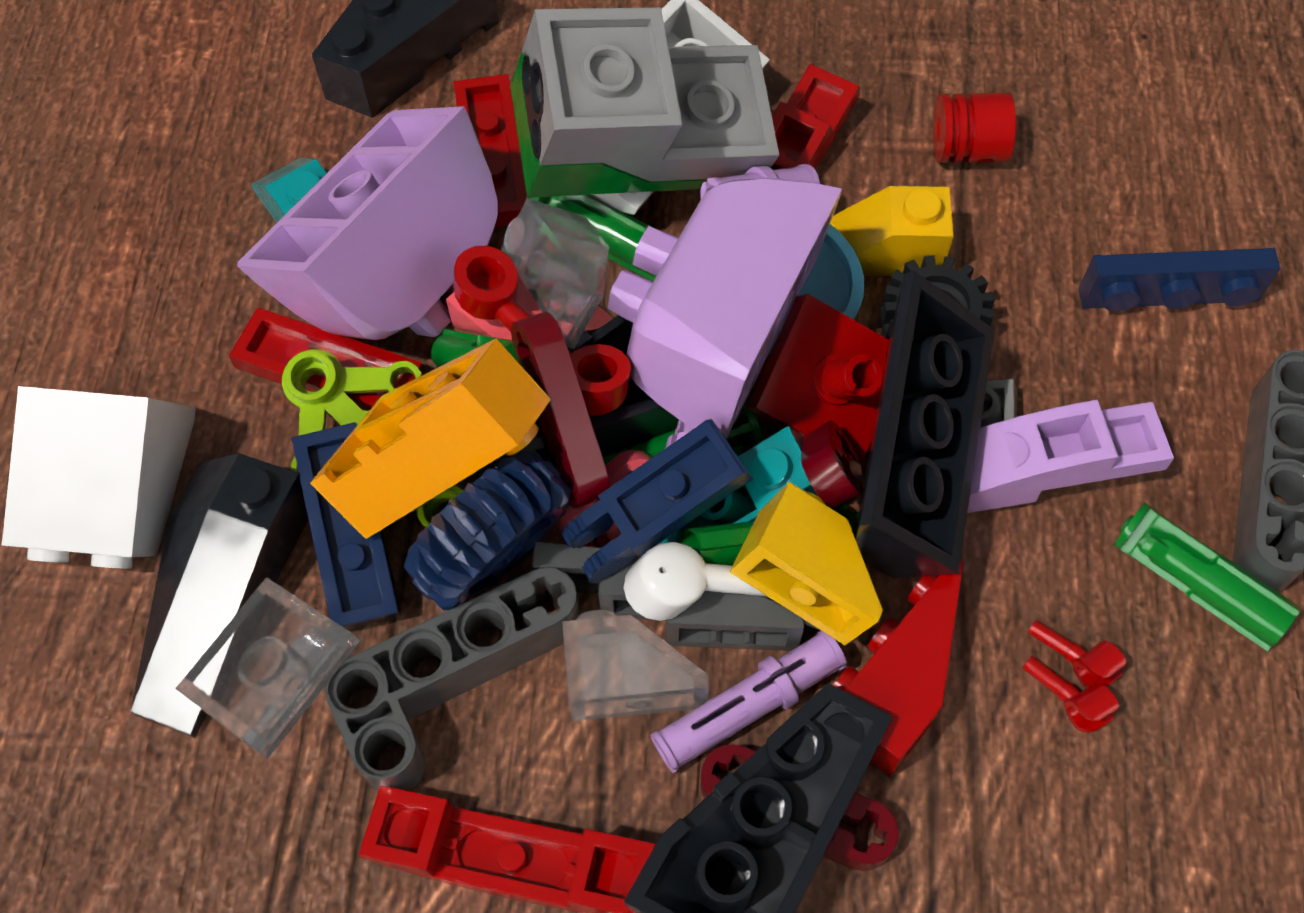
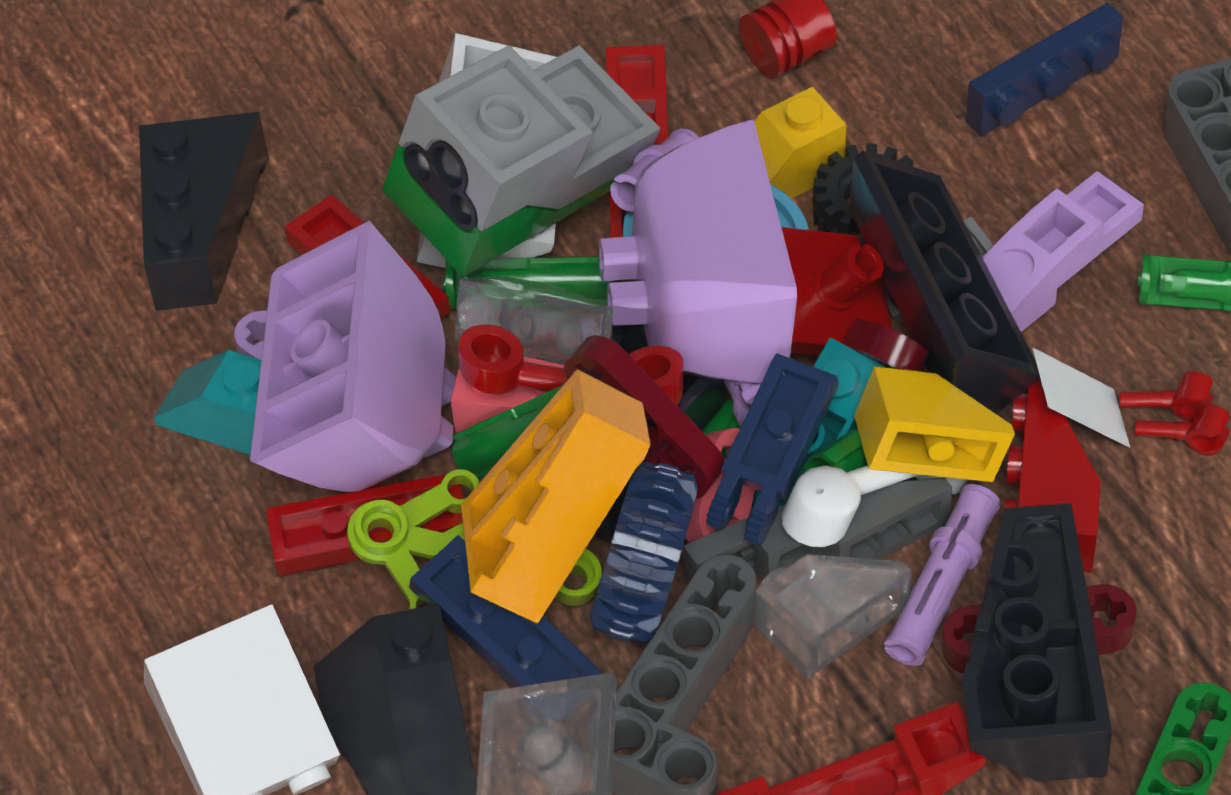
camera: 30 degrees left, 10 degrees down
(986, 609) = (1081, 397): none -> white sticker

